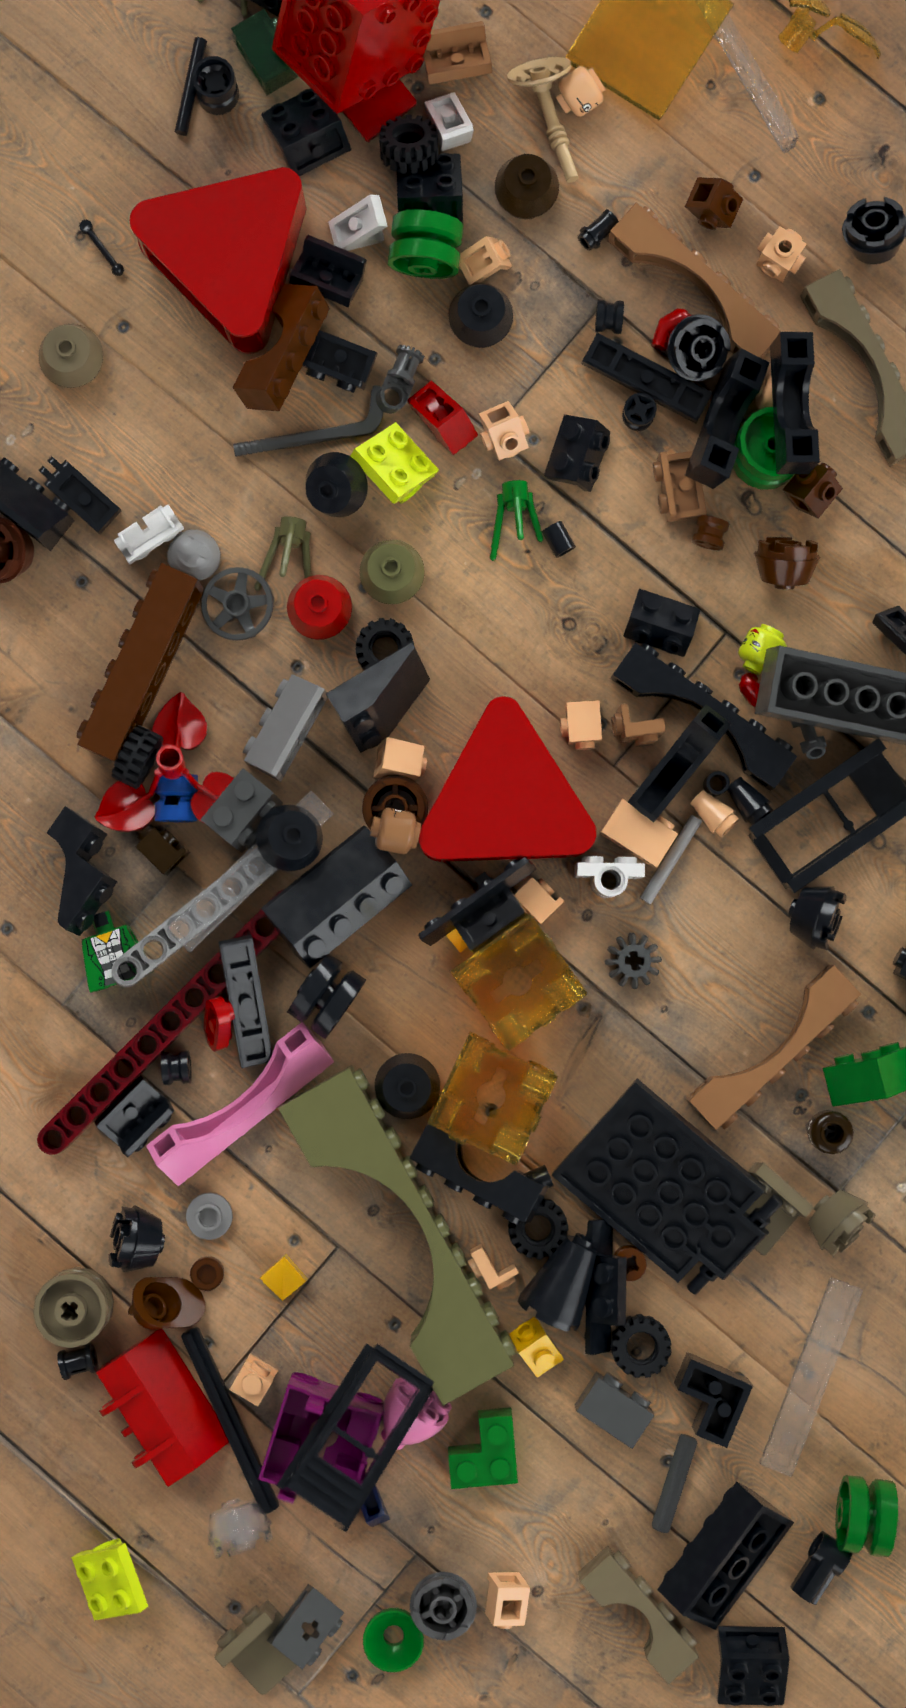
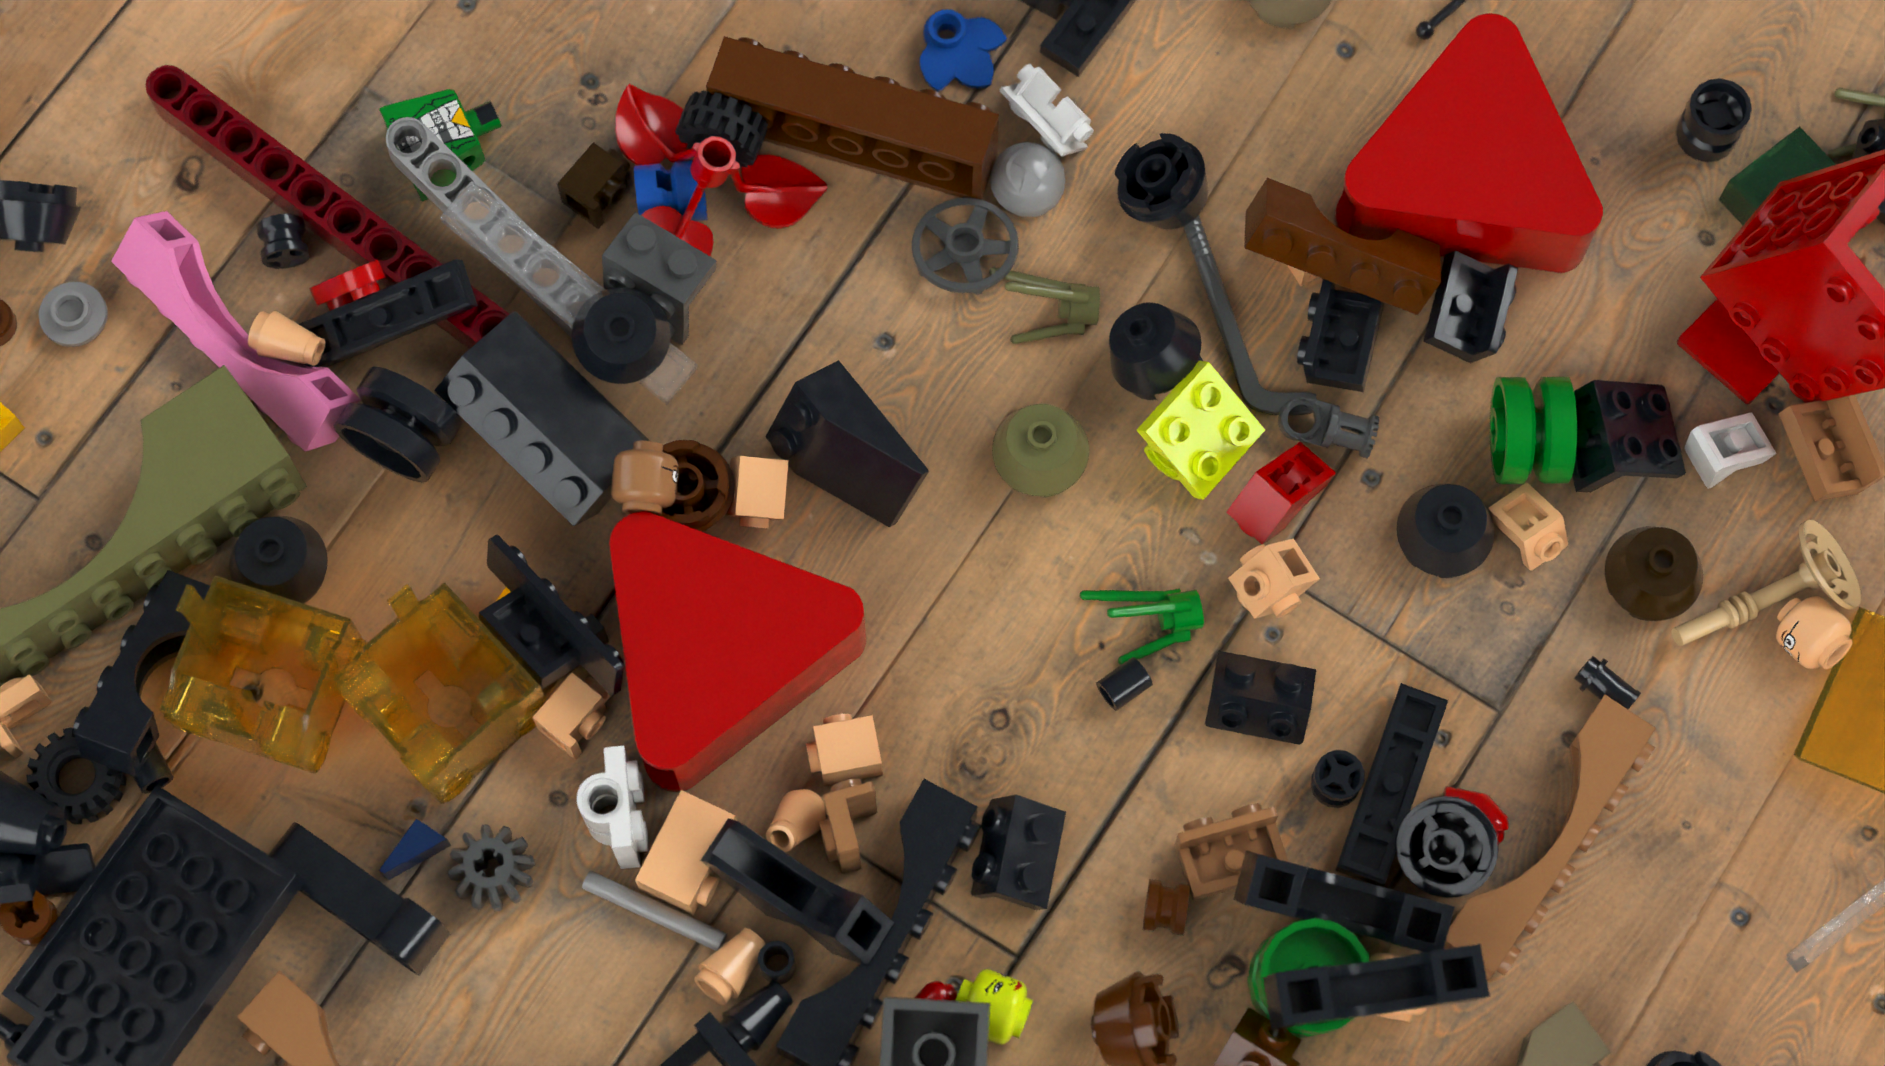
camera: 85 degrees right, 15 degrees down
(83, 884) = (538, 81): black arch -> none
(96, 589) = (964, 55): none -> blue plate
(135, 1116) = (210, 195): black bracket -> none
(189, 91) = (1682, 92): black bar -> none
(214, 462) = (1162, 182): none -> black cone
(253, 1069) = (284, 339): none -> light nougat cone
(285, 726) = (785, 325): light grey slope -> none
(306, 131) = (1667, 252): black bracket -> none
(319, 607) = (974, 356): red cone -> none
(359, 224) = (1547, 342): white slope -> none
(376, 630) = (951, 440): black tyre -> none
(408, 144) = (1663, 399): black tyre -> none
(609, 316) = (1476, 715): black wheel -> none
(609, 1007) = (415, 847): none -> dark blue piece
(626, 760) = (796, 819): none -> light nougat cone
(644, 1047) = (361, 901): none -> black beam
(714, 202) = (1679, 849): reddish brown brick -> none
(778, 263) = (1608, 975): light nougat brick -> none

